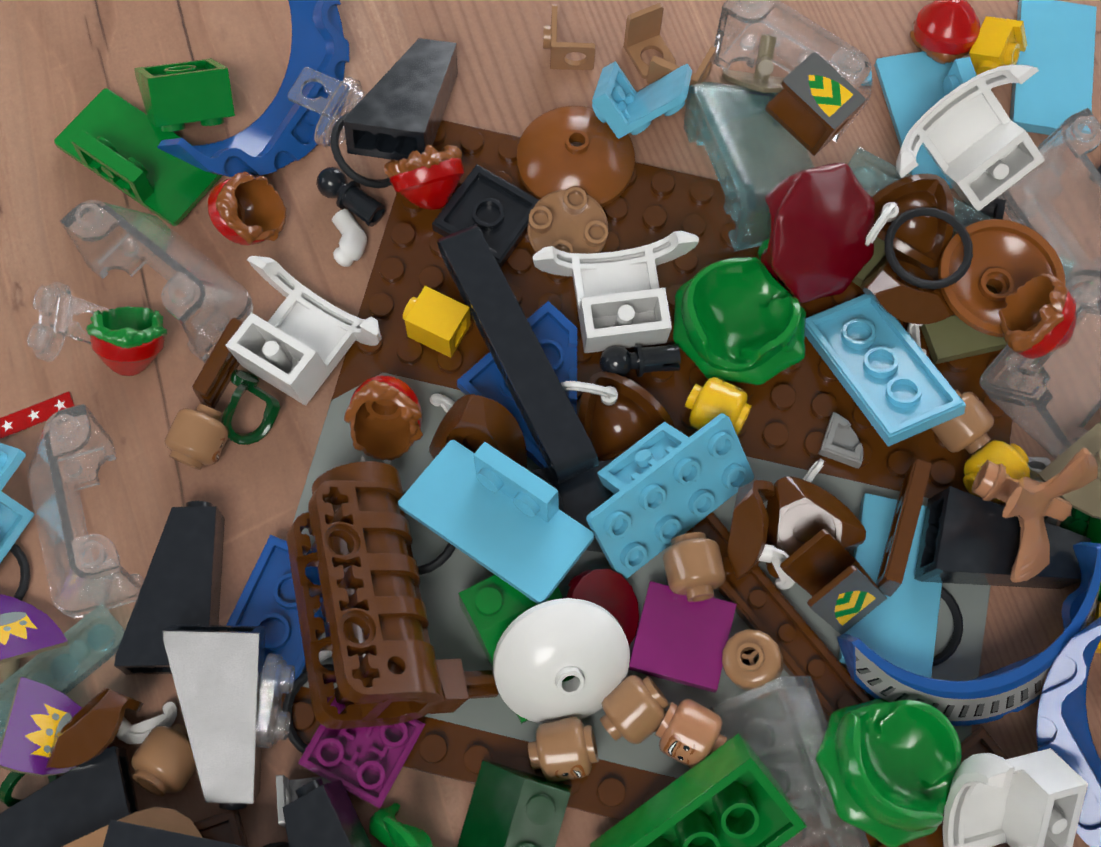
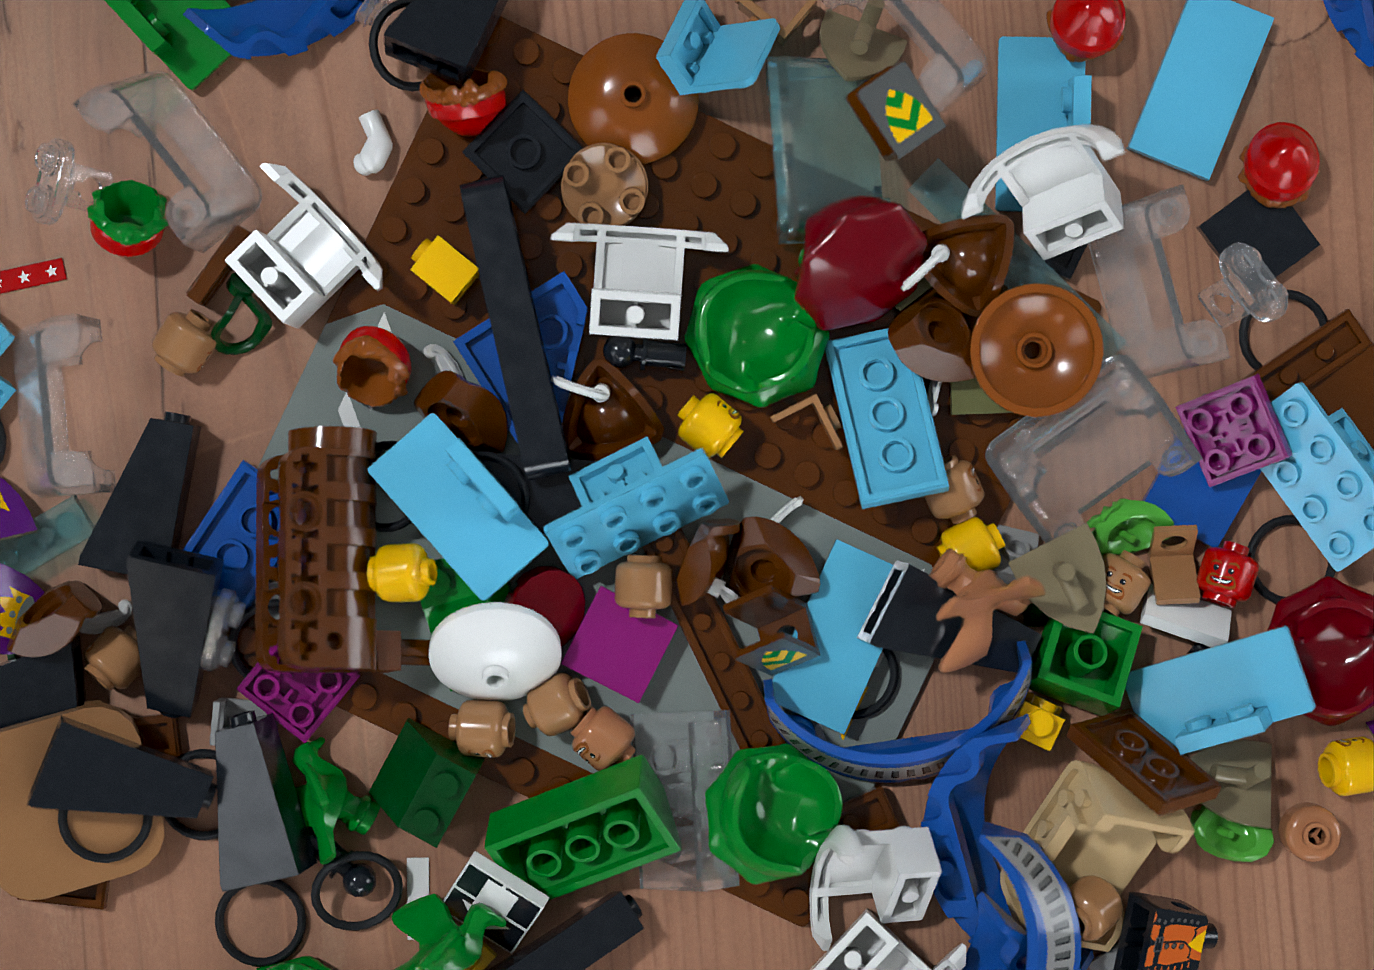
camera: 15 degrees right, 20 degrees up
(247, 209) = (269, 97): dark orange hair -> none
(334, 184) = (383, 95): black pin -> none
(451, 593) = (401, 572): none -> yellow head
(767, 667) = (690, 679): medium nougat head -> none
(820, 380) = (825, 414): none -> medium nougat bracket
(841, 442) = (829, 480): light grey tile -> none
(903, 527) = (857, 588): reddish brown tile -> none
(928, 284) = (1008, 305): black tyre -> none
(998, 44) = (1135, 57): yellow brick -> none
(1038, 317) = (1046, 414): dark orange hair -> none

